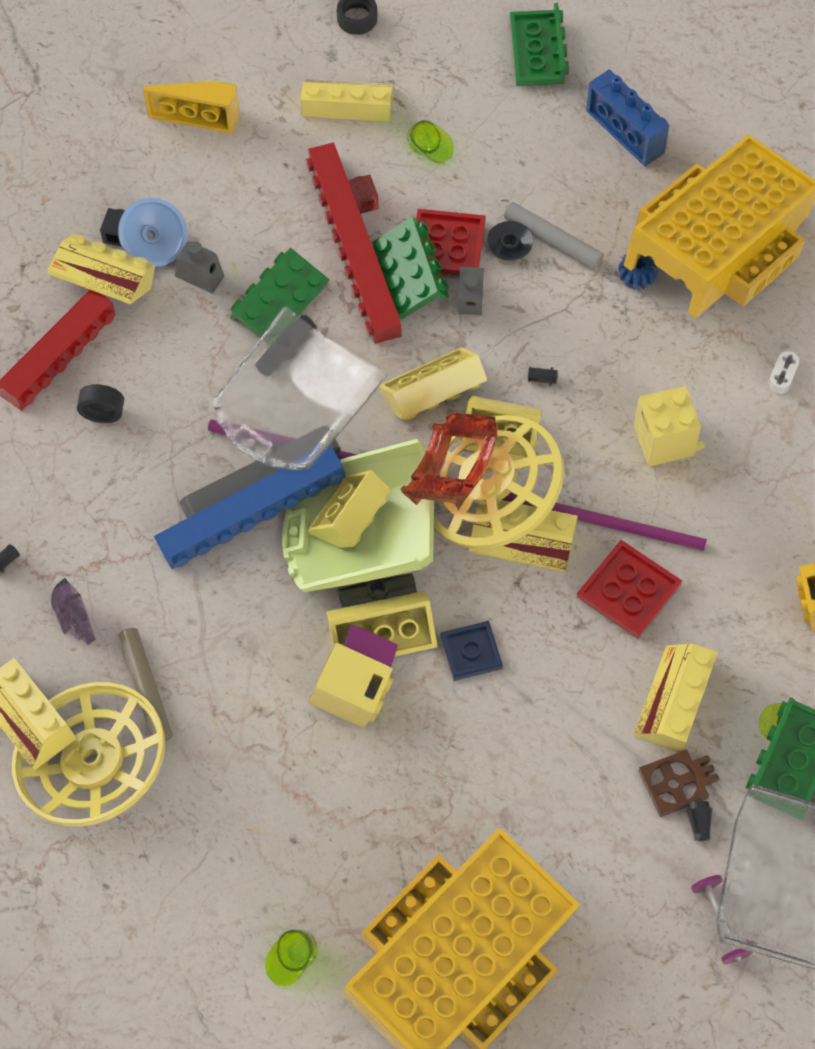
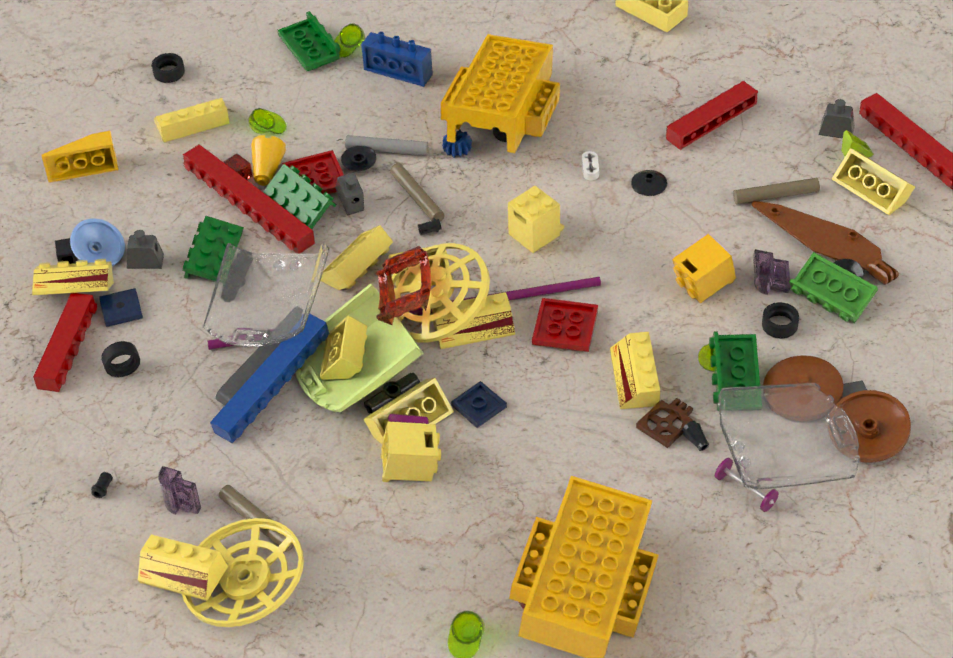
camera: 25 degrees left, 15 degrees down
(140, 328) = (120, 307): none -> dark blue tile
(400, 196) = (266, 158): none -> yellow cone
(553, 320) = (416, 192): none -> dark tan piece
(587, 61) = (349, 39): none -> clear neon green cap

